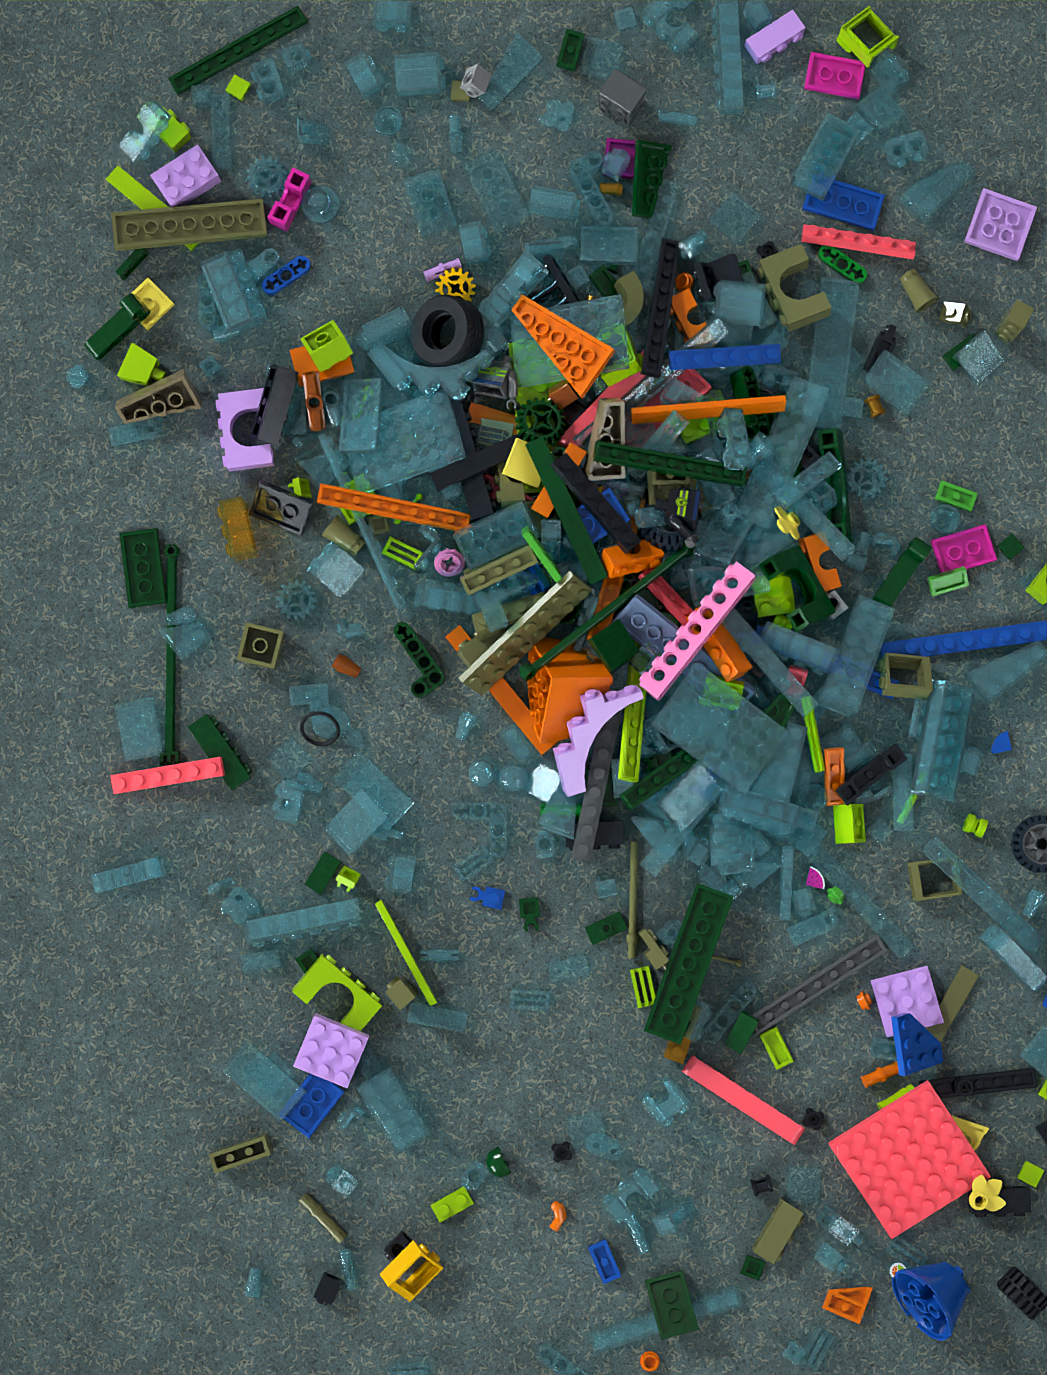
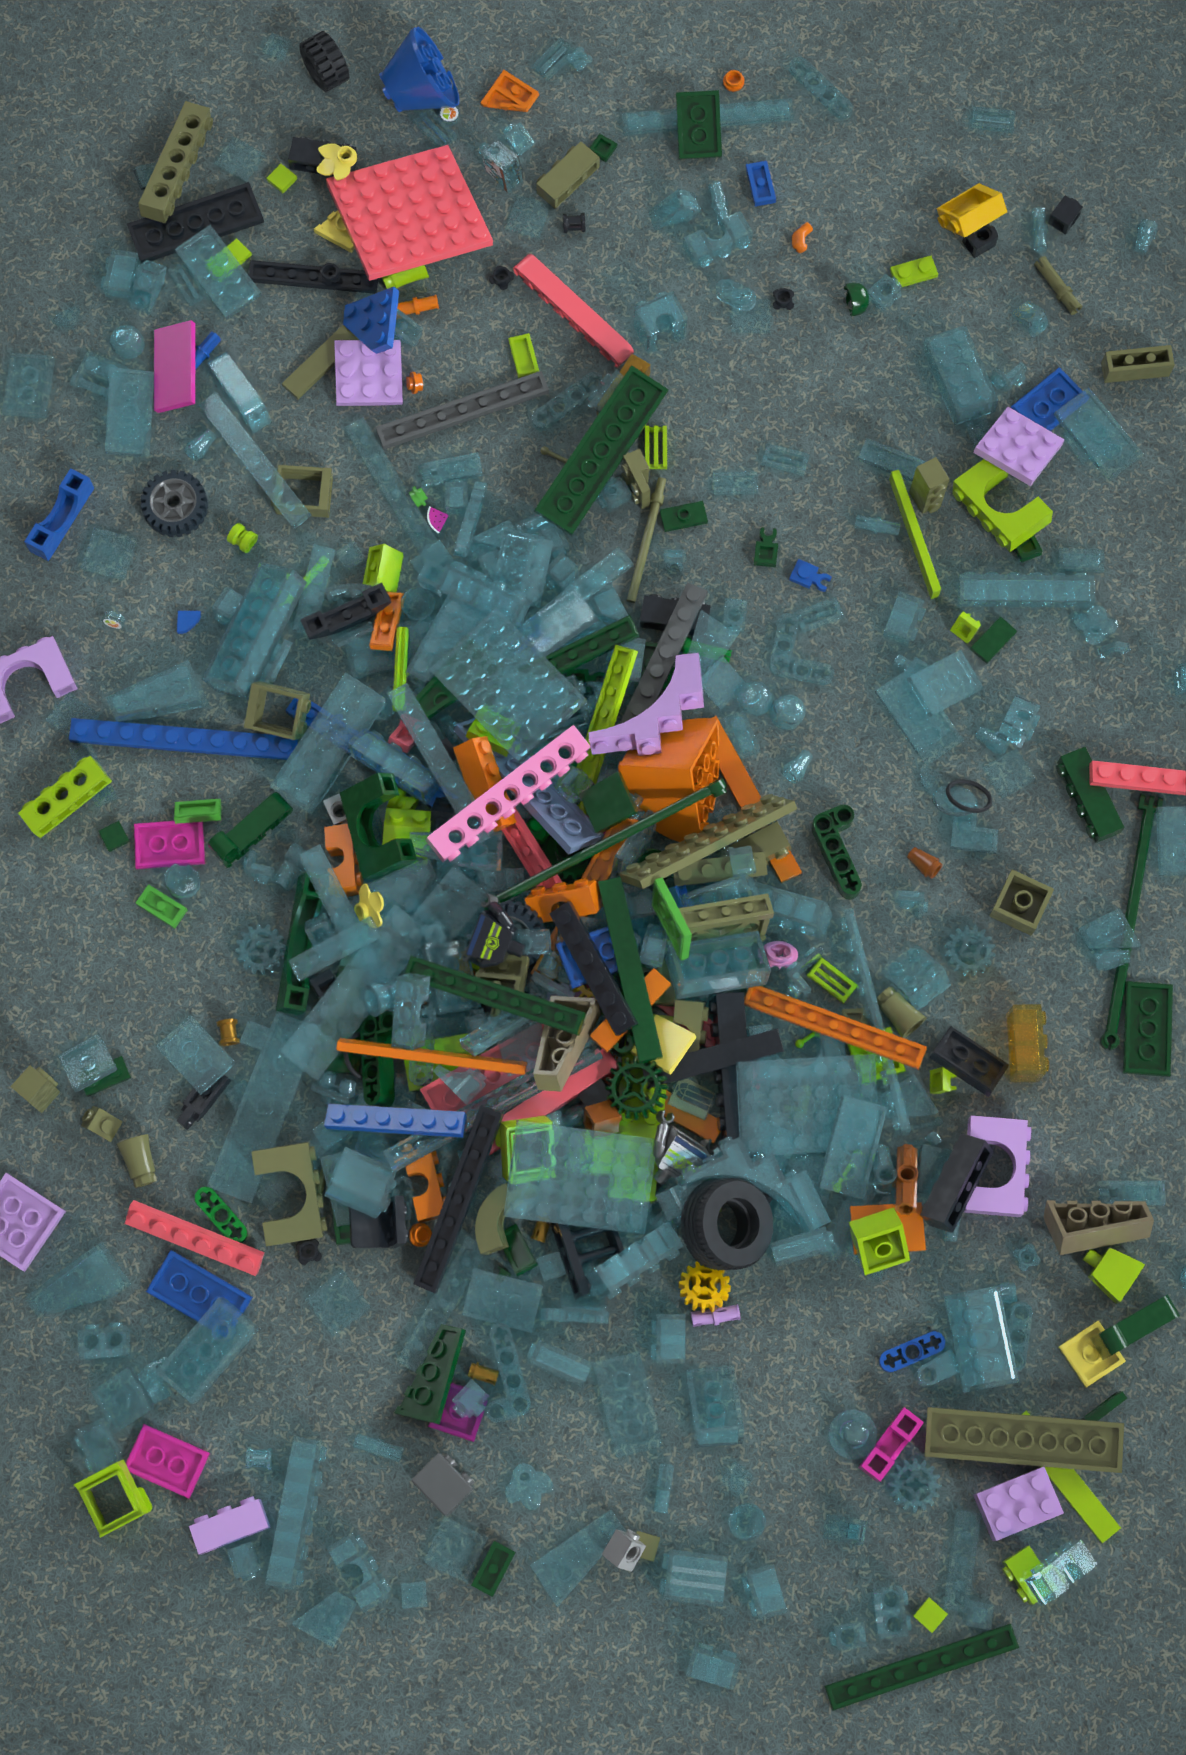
camera: 170 degrees left, 10 degrees down
(572, 350) = (585, 1162): orange wing -> none
(693, 245) = (398, 1276): clear light blue hips -> none
(741, 1032) = (558, 376): dark green tile -> none

